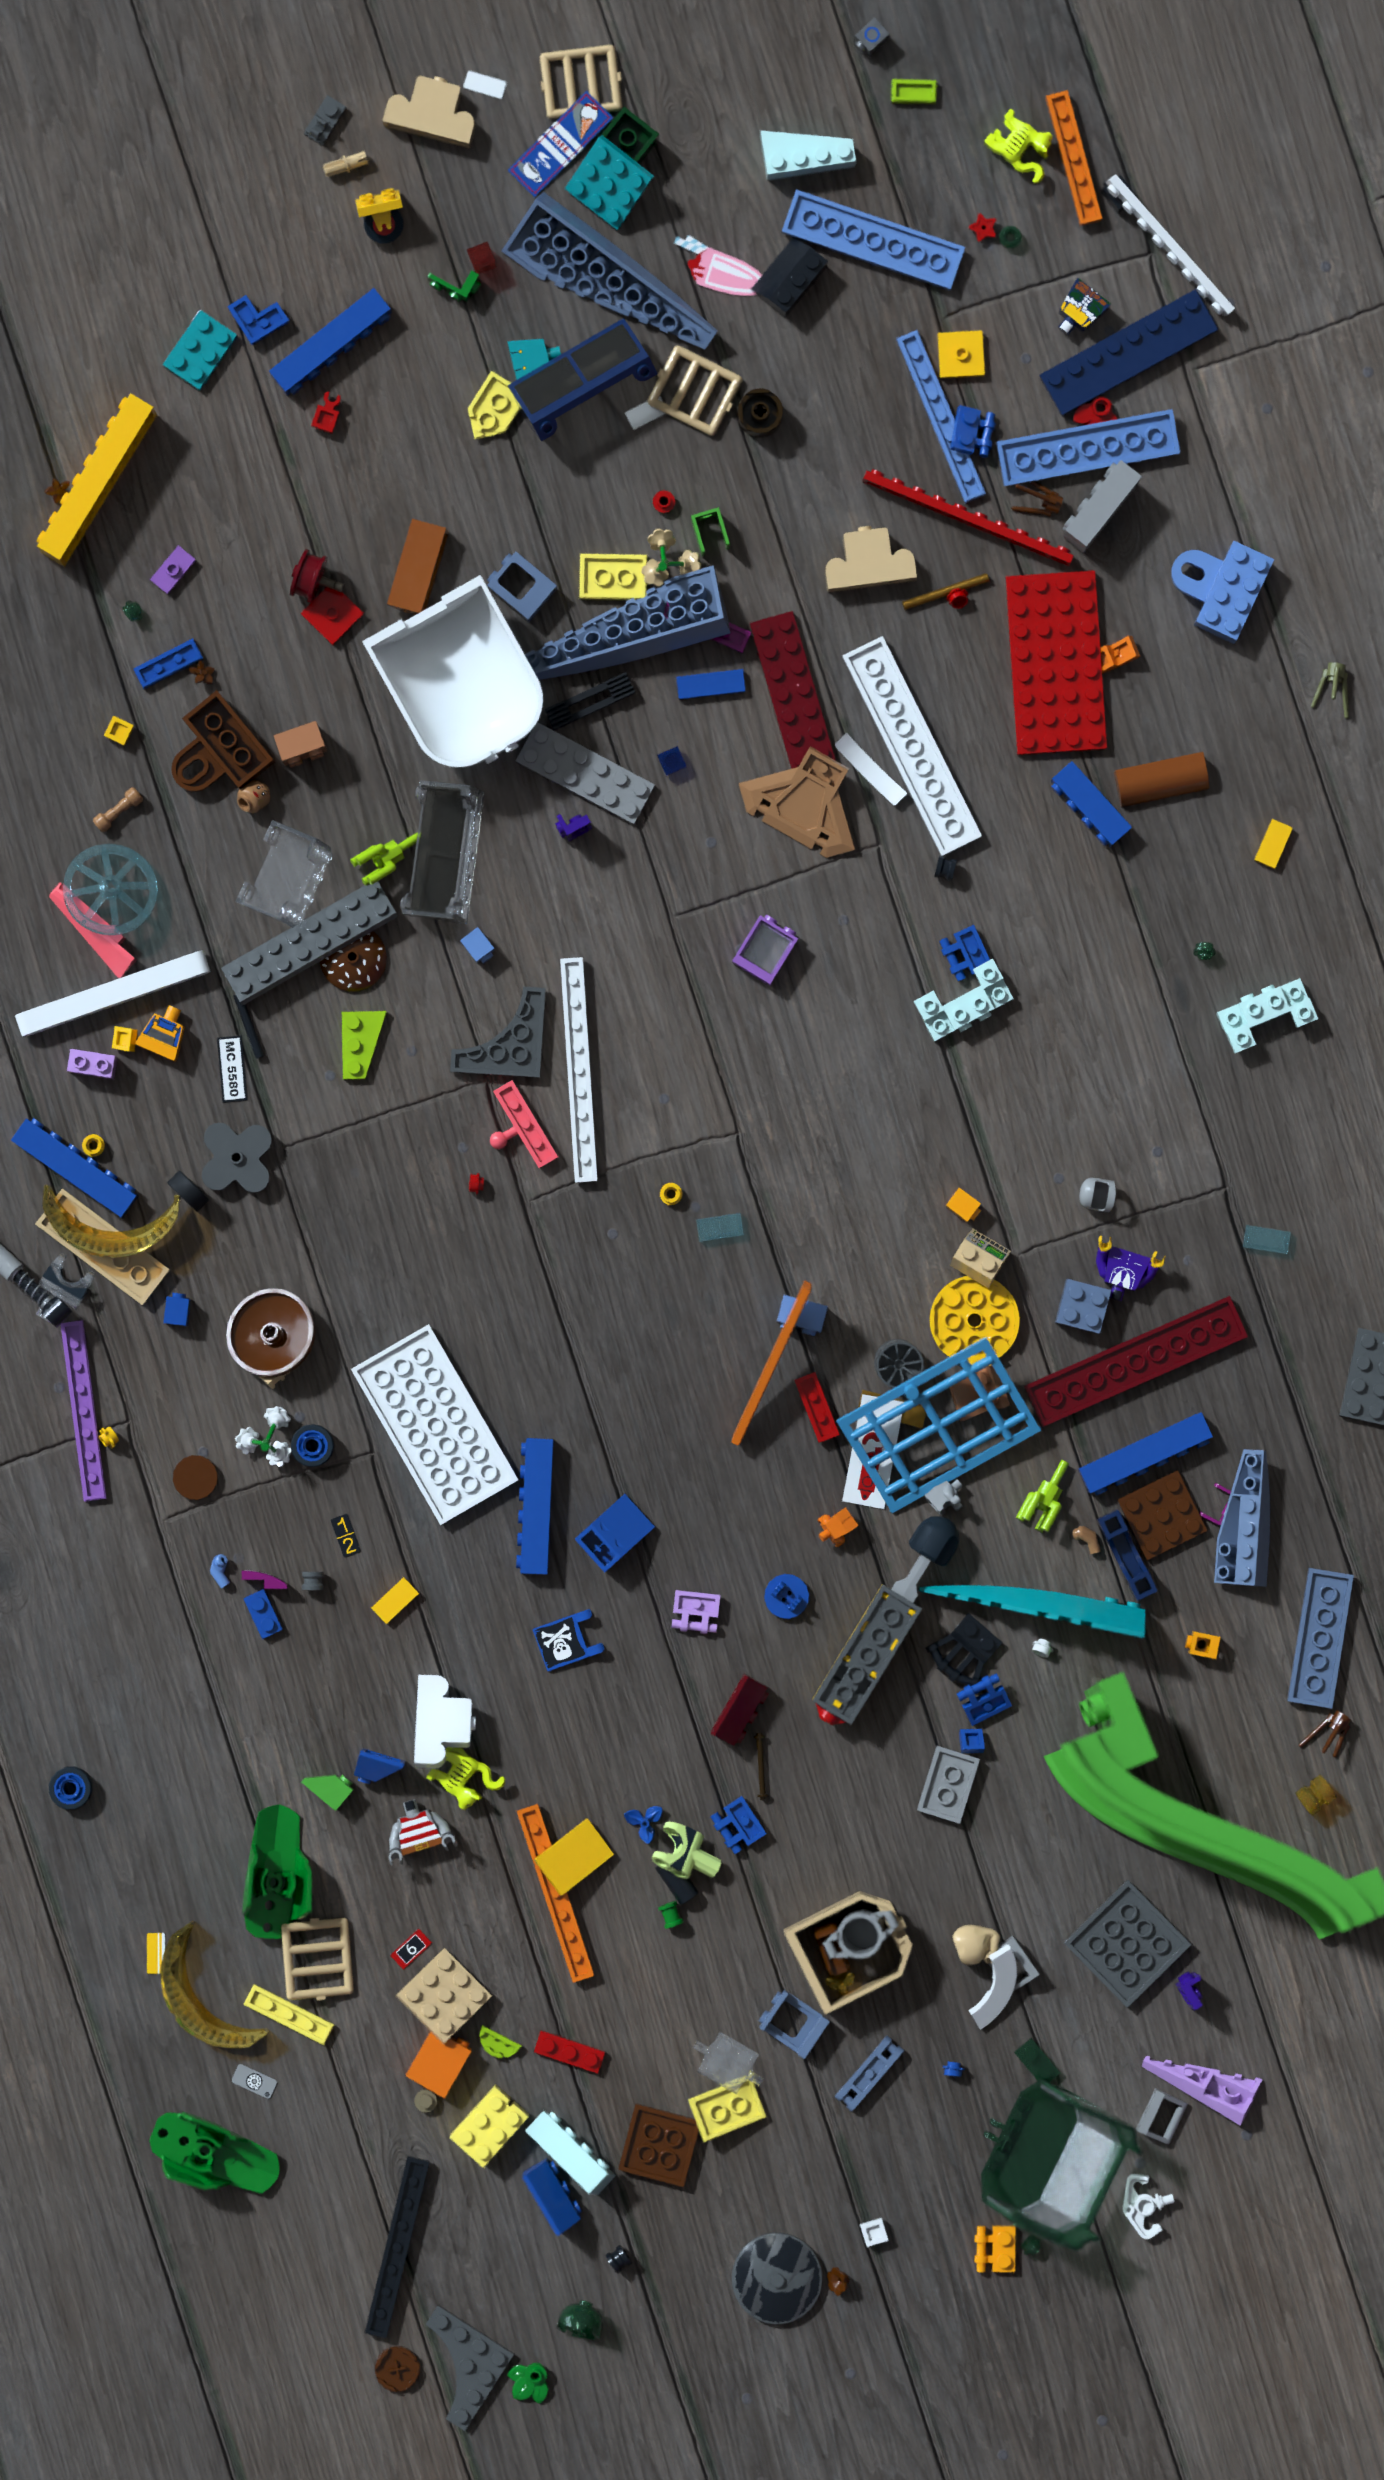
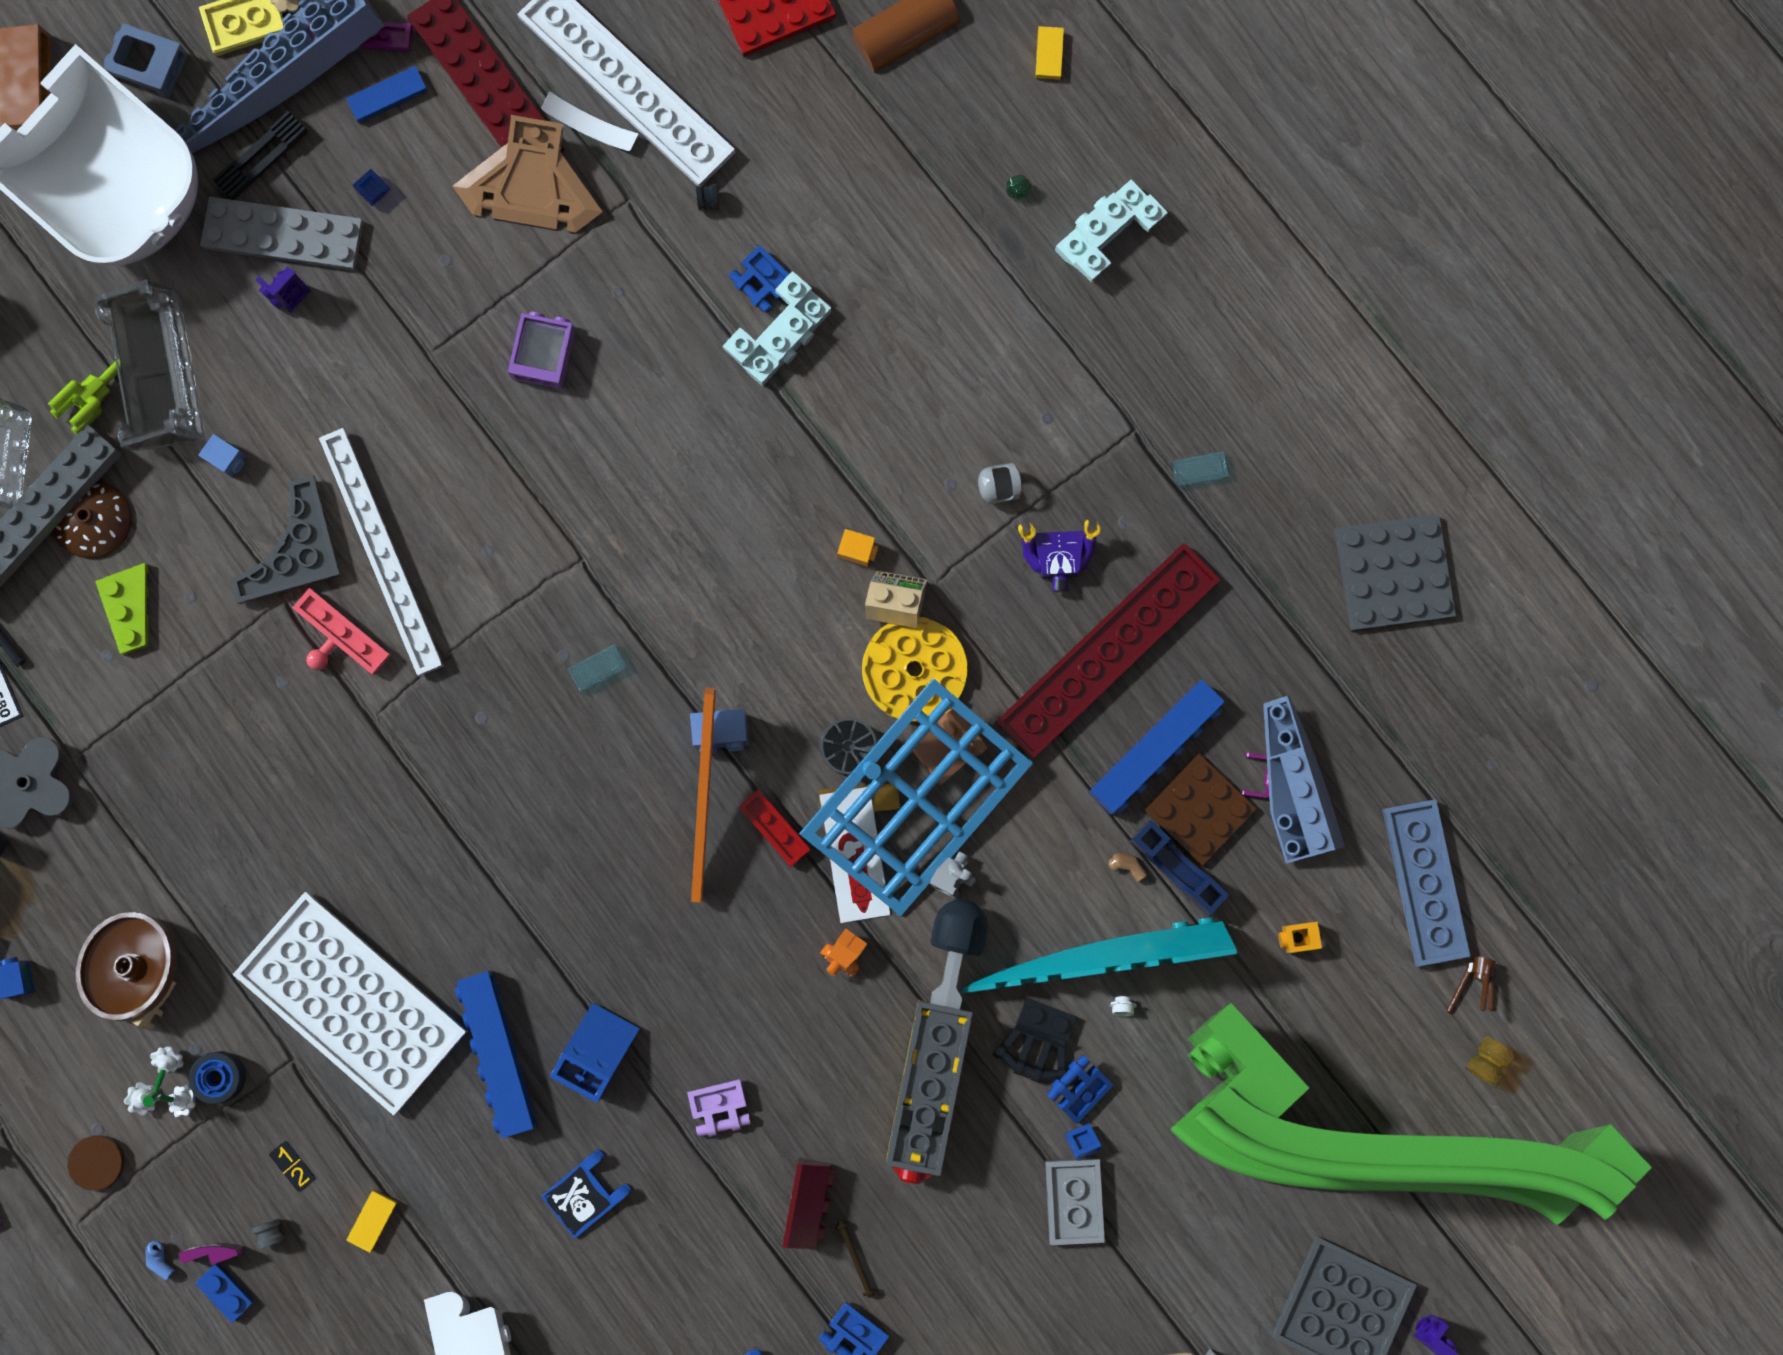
camera: 20 degrees left, 5 degrees down
(476, 1183) = (307, 716): red plate -> none
(663, 1193) = (524, 645): yellow plate -> none
(778, 1589) = (828, 1056): blue plate -> none
(1044, 1500) = (1065, 839): lime plant -> none
(1082, 1306) = (1028, 611): sand blue brick -> none
(1091, 804) = (839, 77): blue brick -> none

